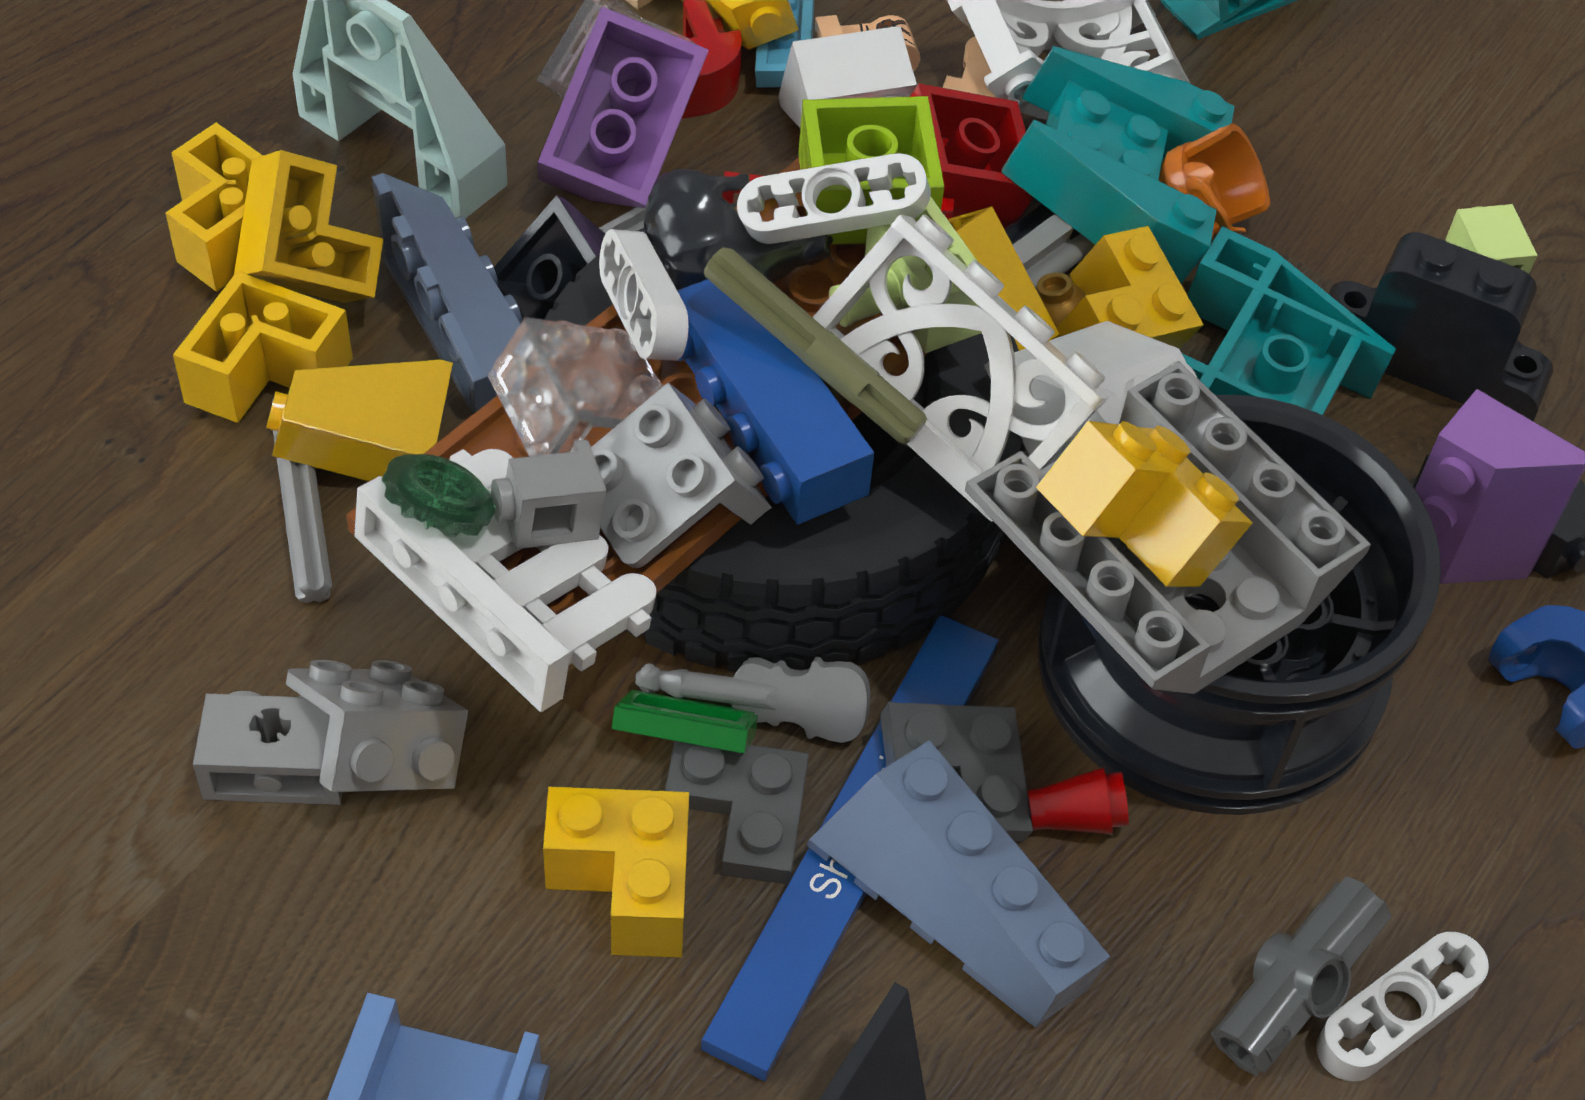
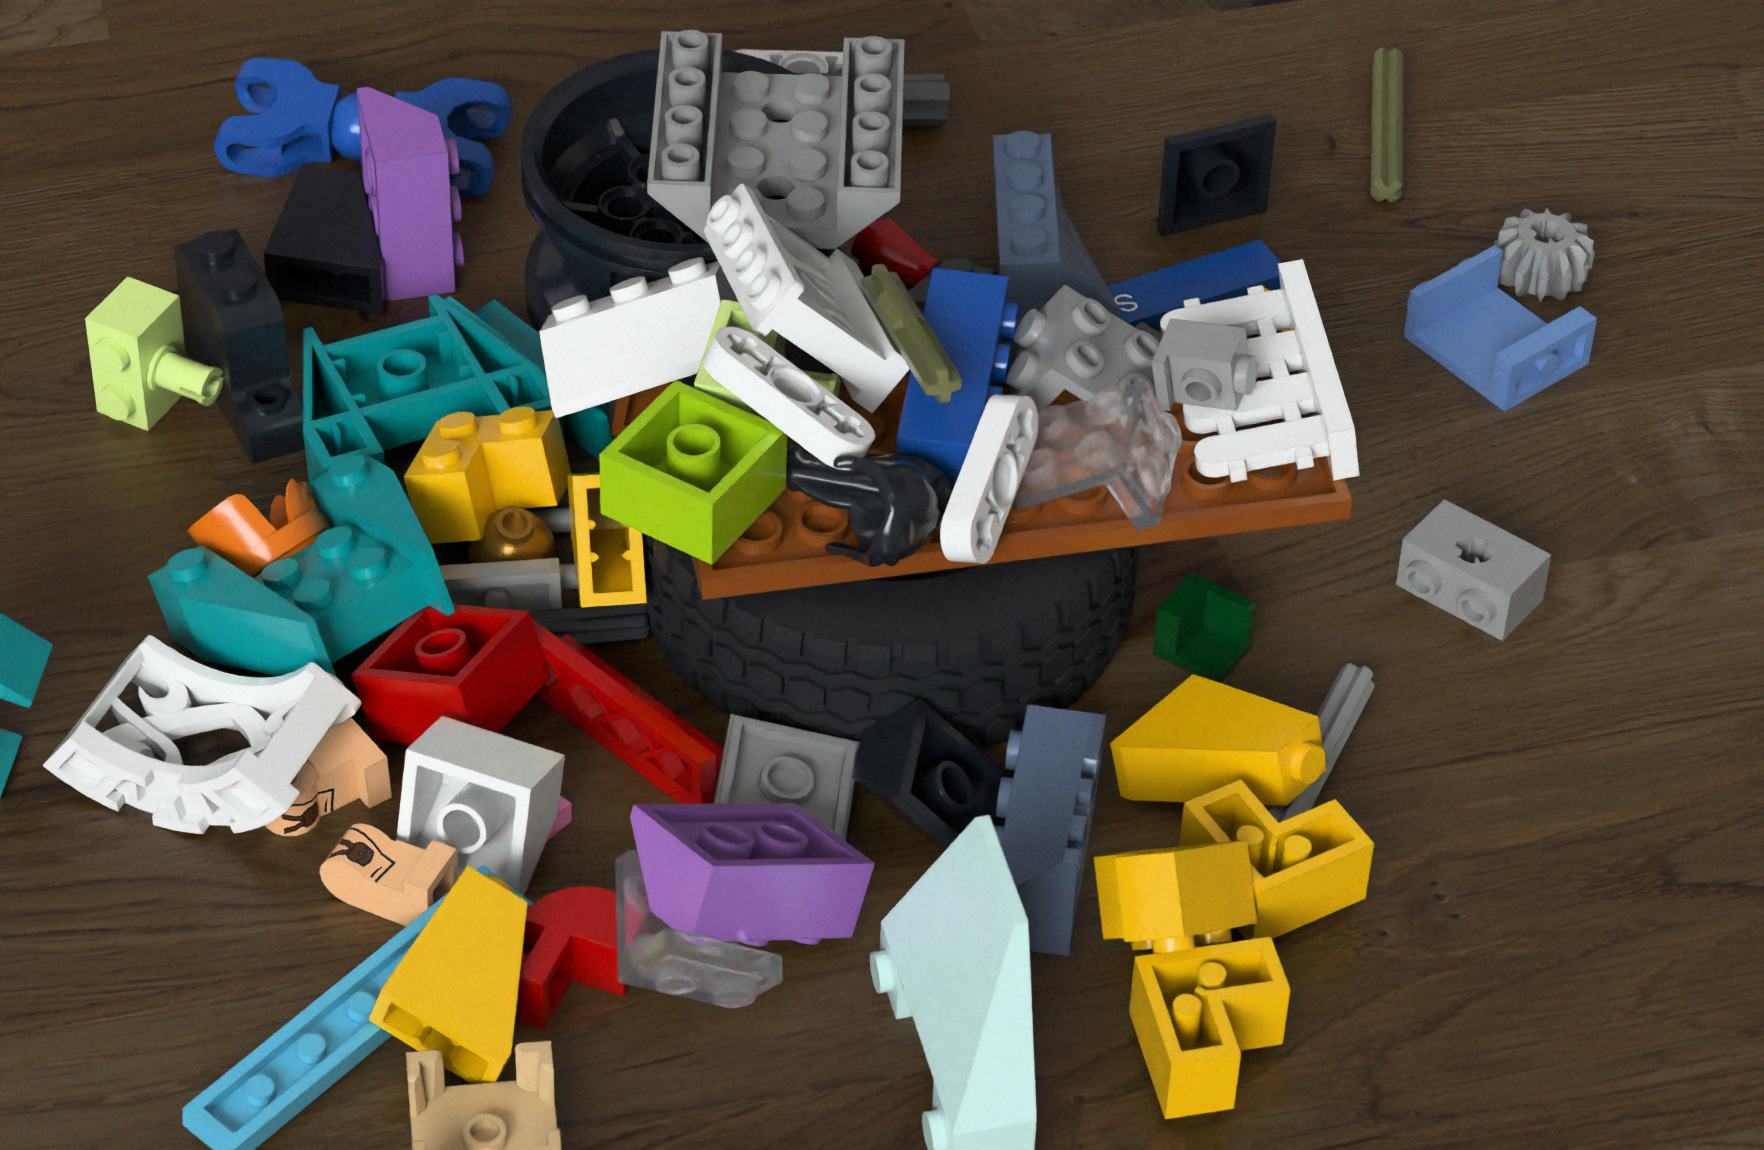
camera: 140 degrees left, 10 degrees down
(383, 726) = (1390, 532): light grey bracket -> none
(438, 494) = (1295, 370): clear green gear -> none
(1149, 496) = (795, 111): yellow brick -> none

